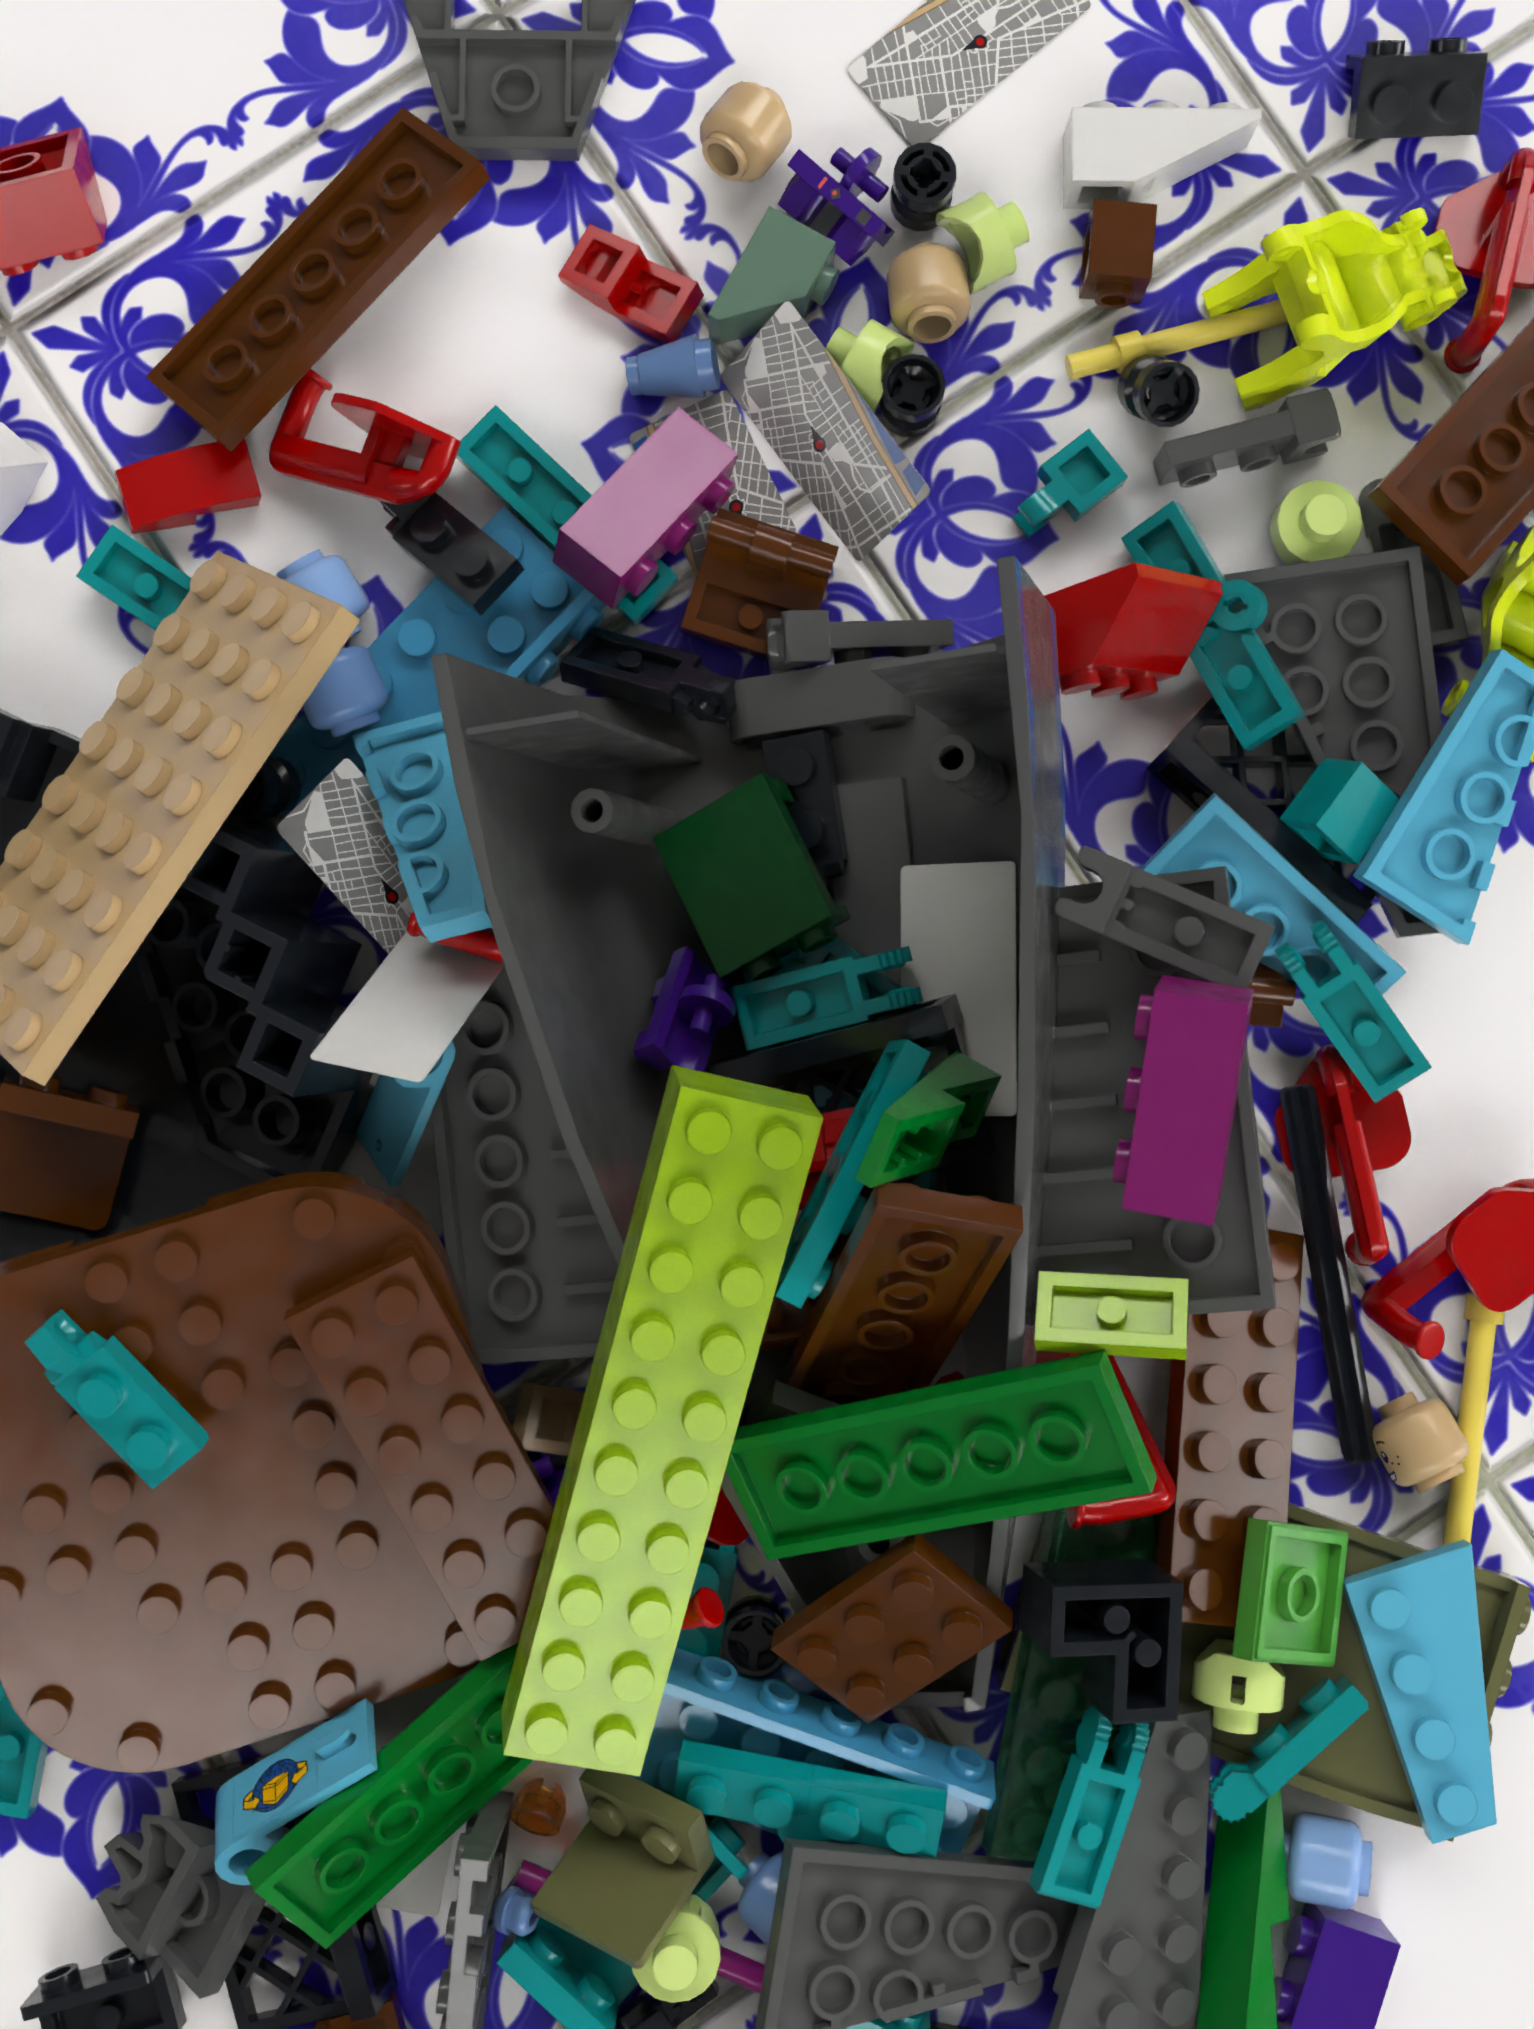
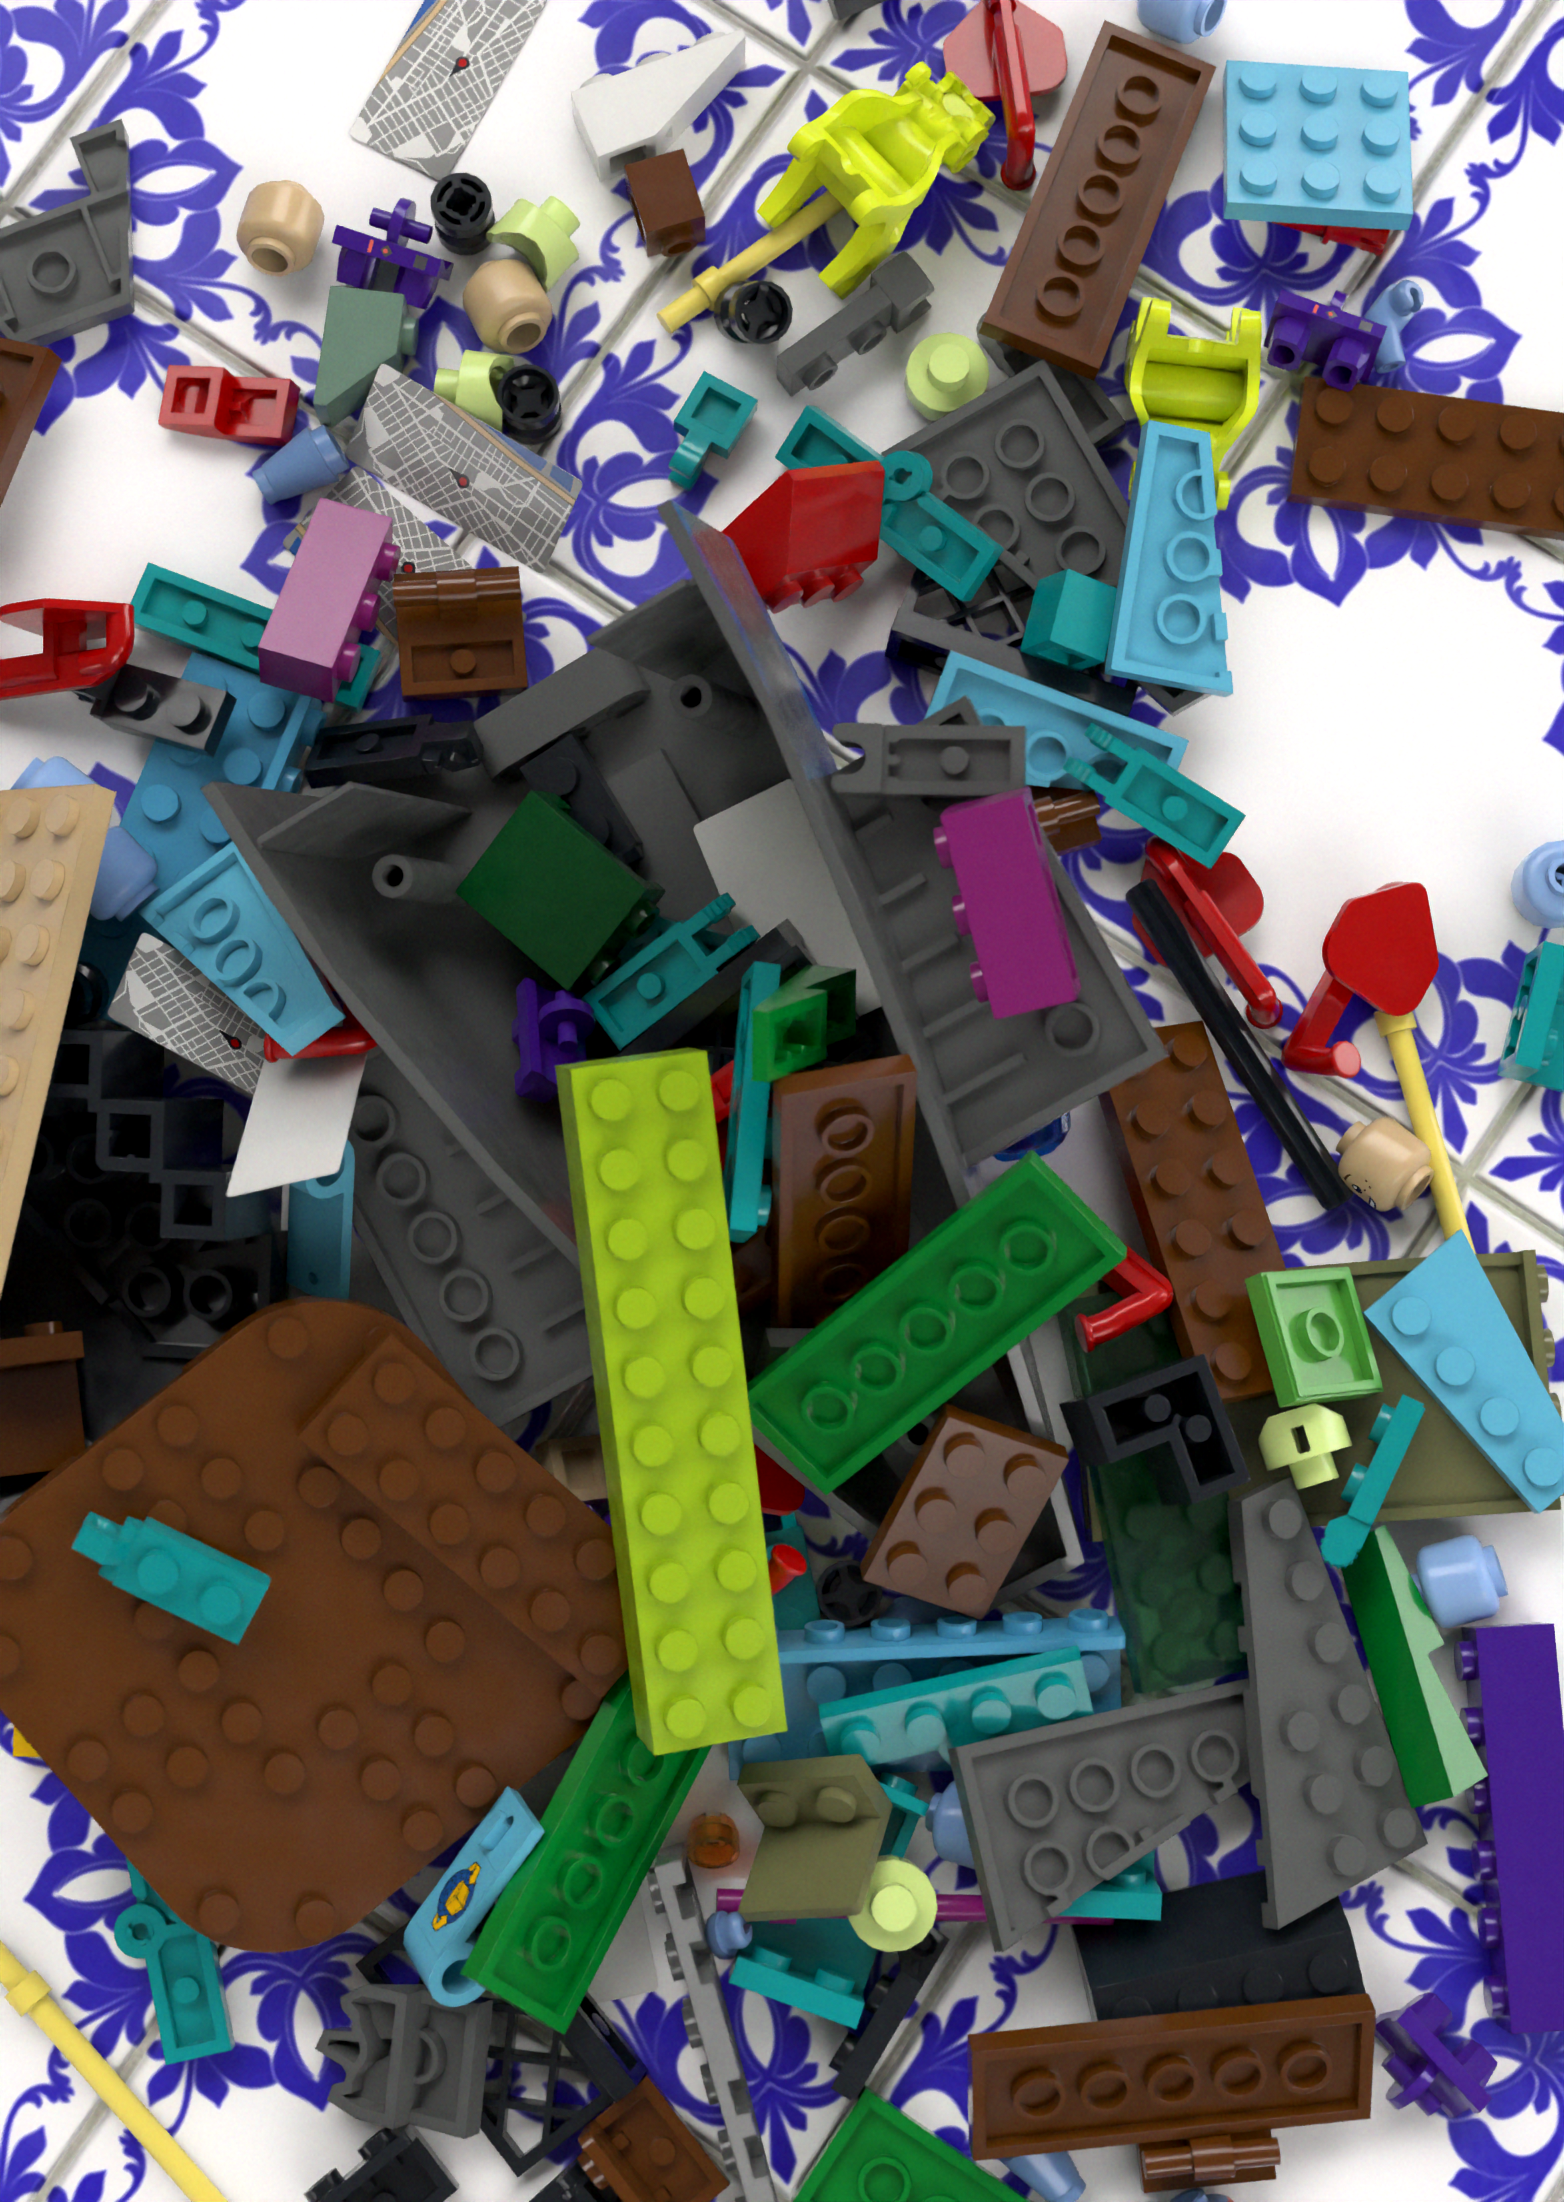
camera: 25 degrees left, 5 degrees down
(808, 639) = (527, 658): dark grey plate -> none
(1090, 1812) = (1215, 1608): teal hinge -> none
(1112, 1313) = (1025, 1117): lime plate -> none

